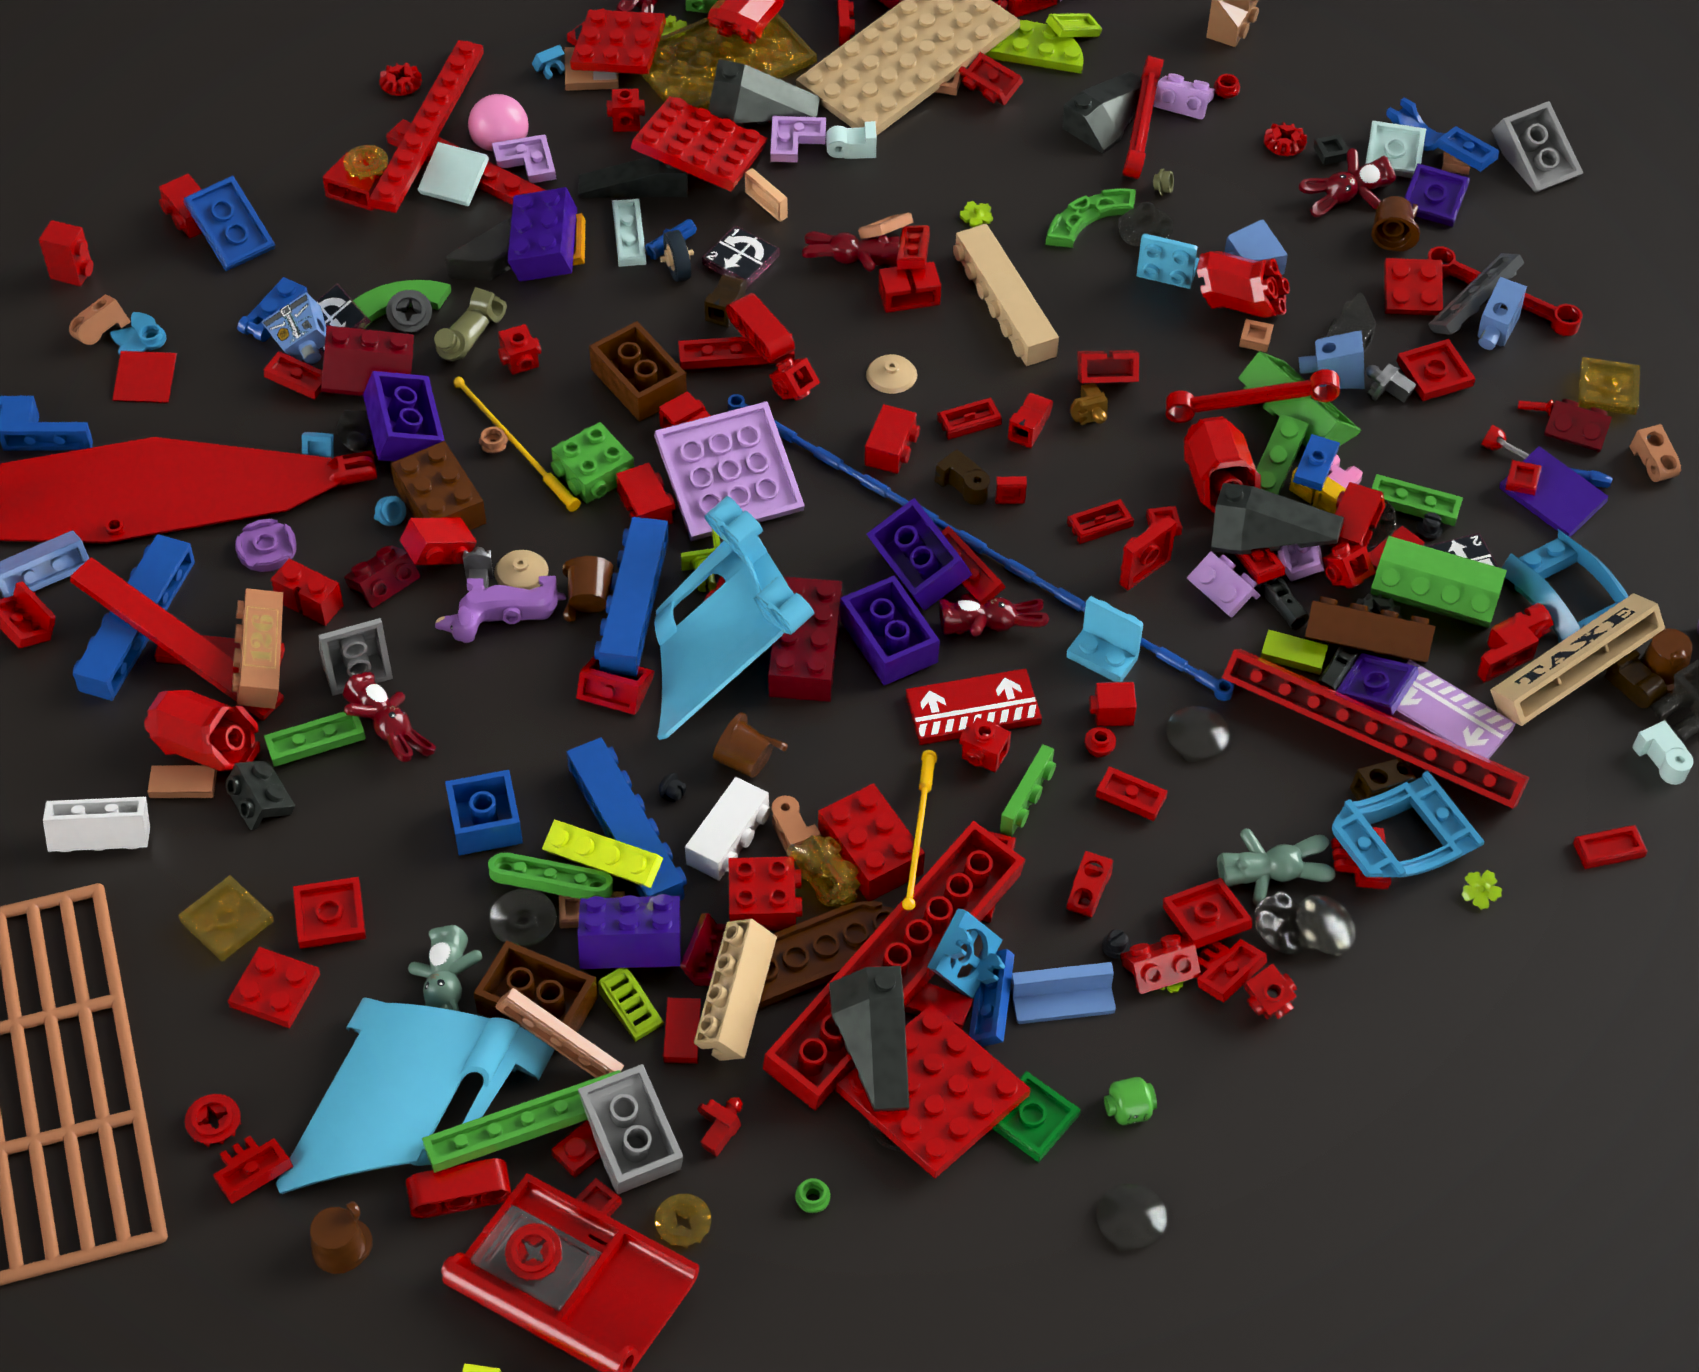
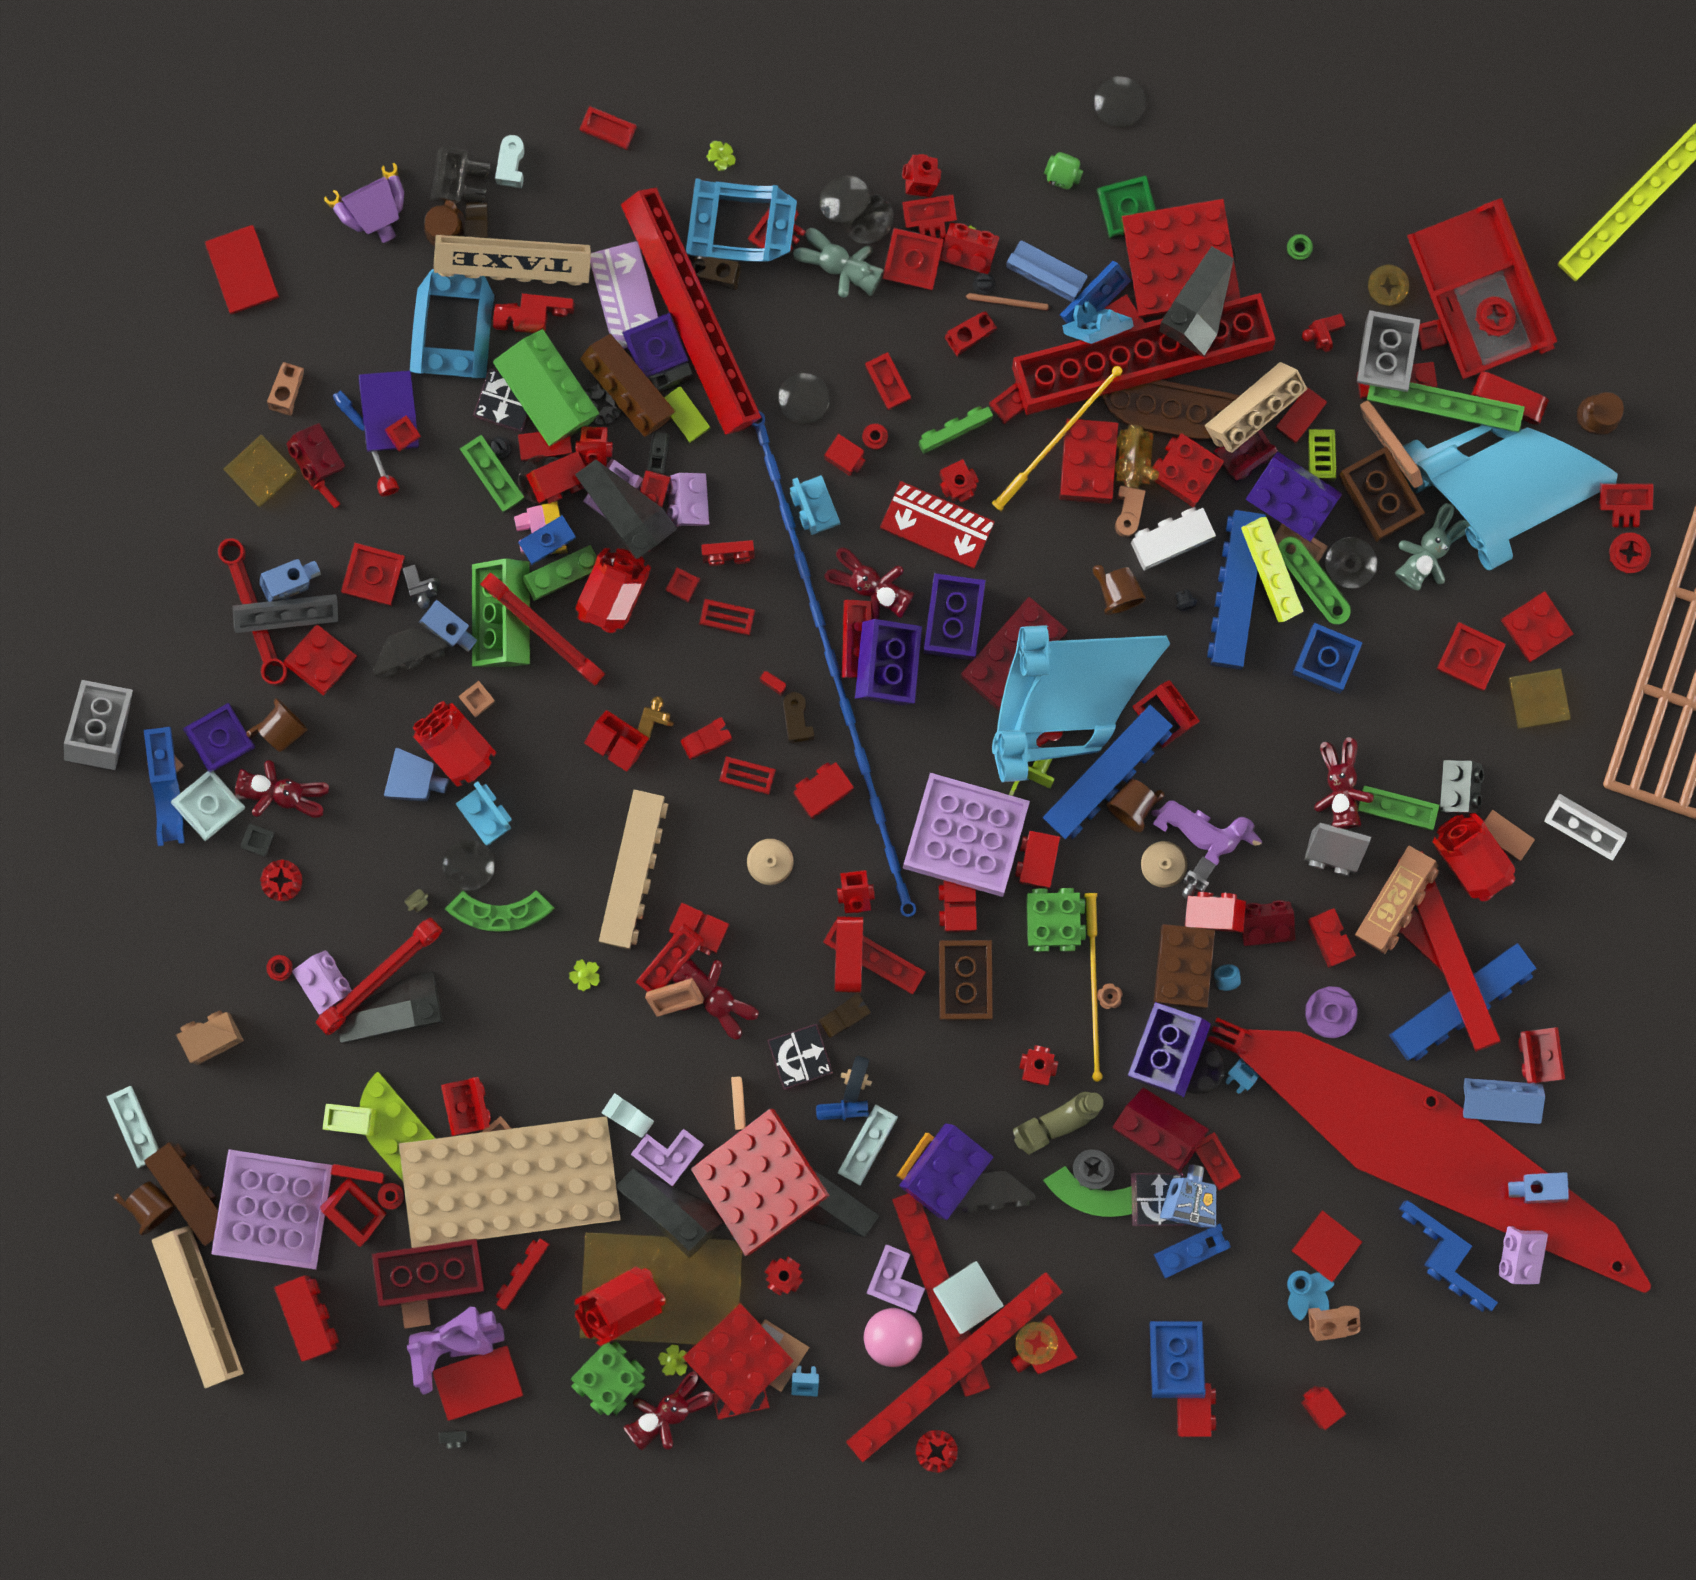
camera: 145 degrees left, 30 degrees up
(1075, 946) = (1005, 301): none -> nougat axle

